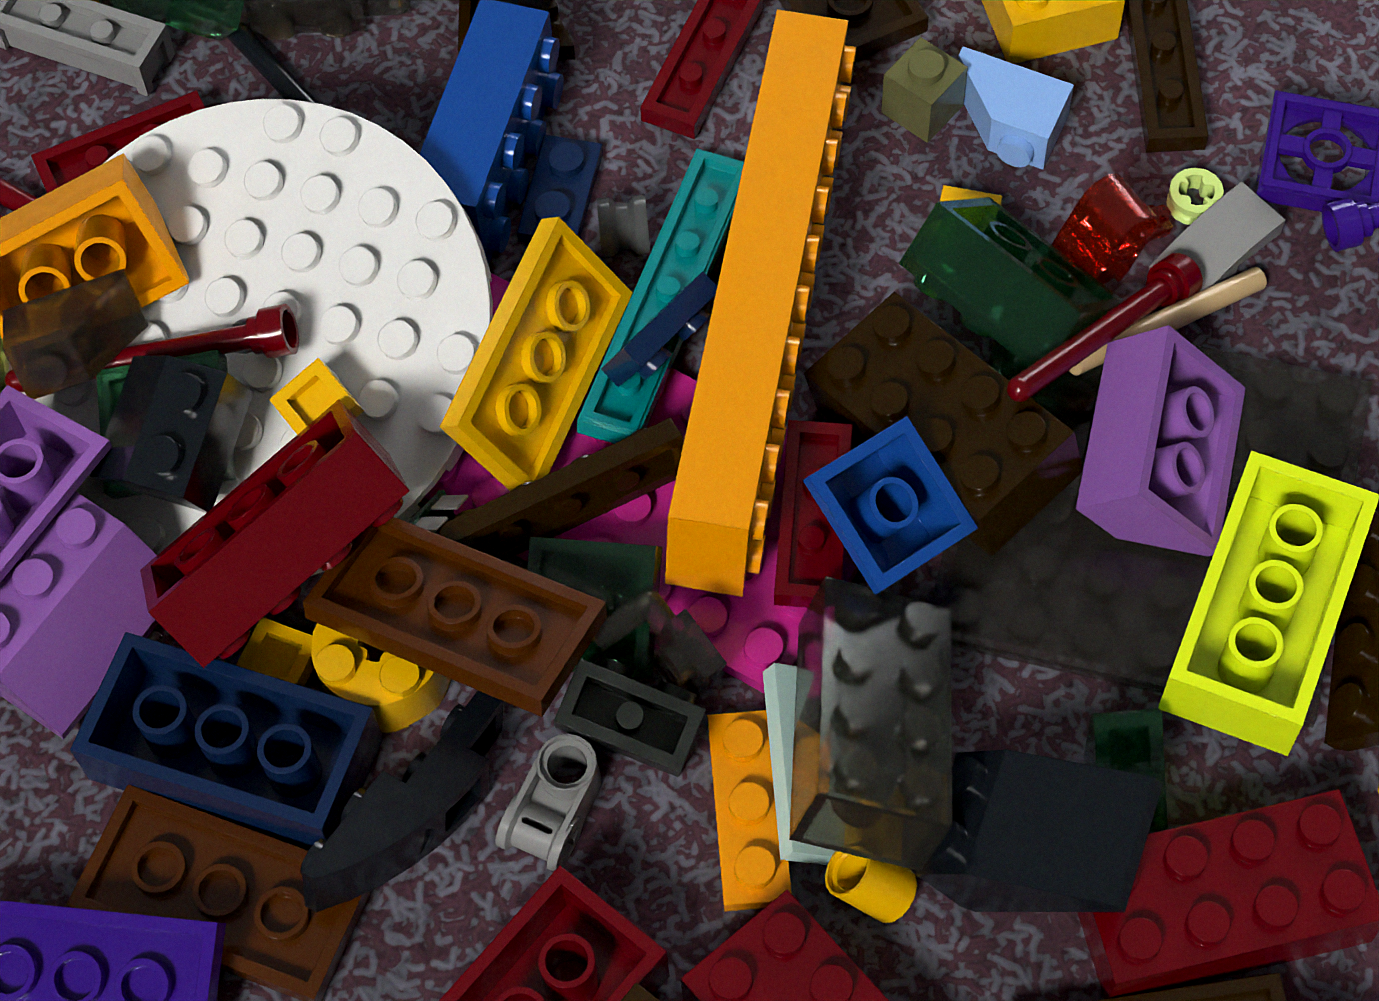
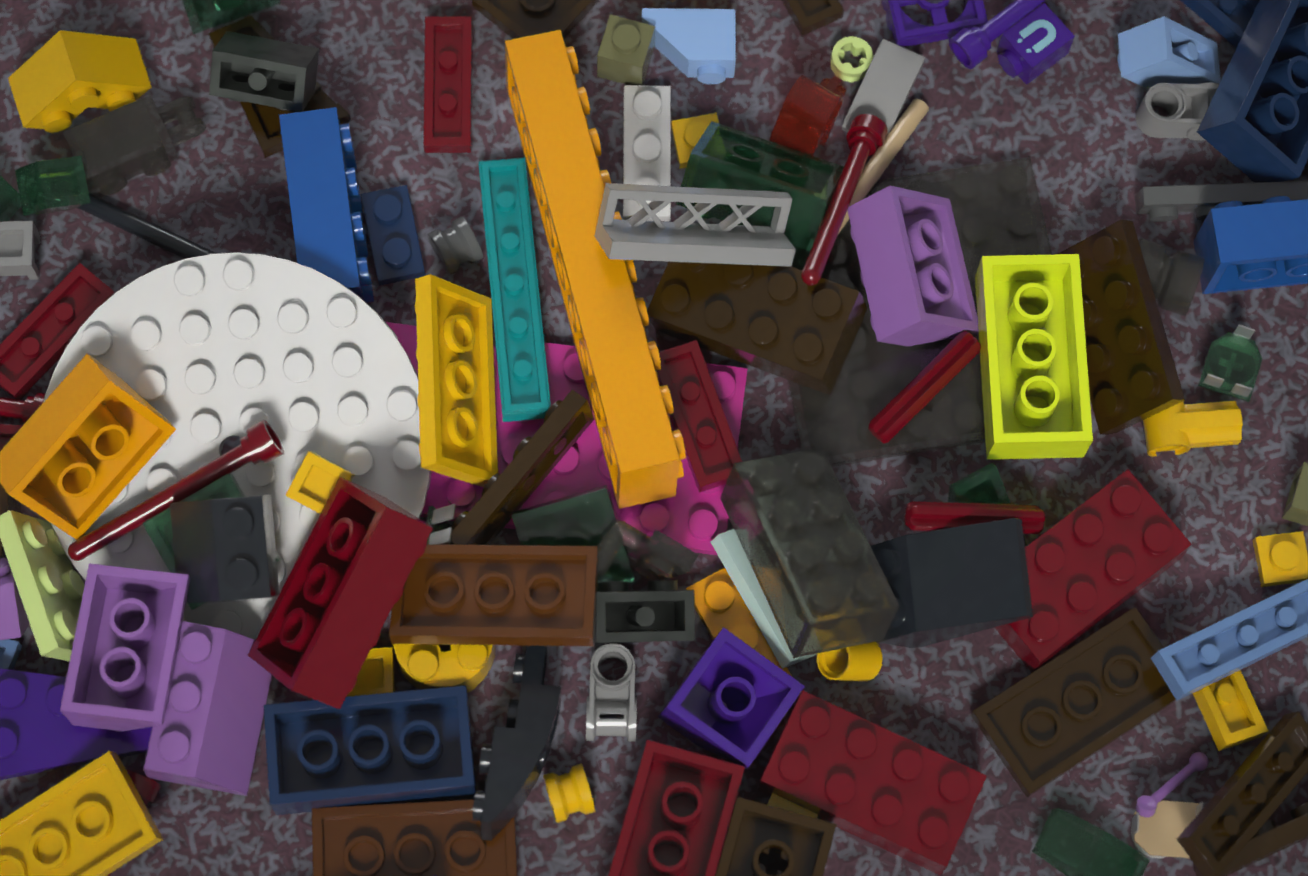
camera: 30 degrees left, 10 degrees up
(71, 333) = (112, 504): clear smoke slope -> none
(441, 899) = (569, 793): none -> yellow wheel
(647, 349) = (537, 312): dark blue plate -> none
(693, 864) = (731, 700): none -> dark purple slope
(890, 505) = (755, 394): blue slope -> none
(892, 297) = (695, 241): none -> light grey fence
(897, 211) = (647, 142): none -> white plate
(1055, 740) = (944, 515): none -> dark red axle
(1114, 590) = (924, 387): none -> dark red axle

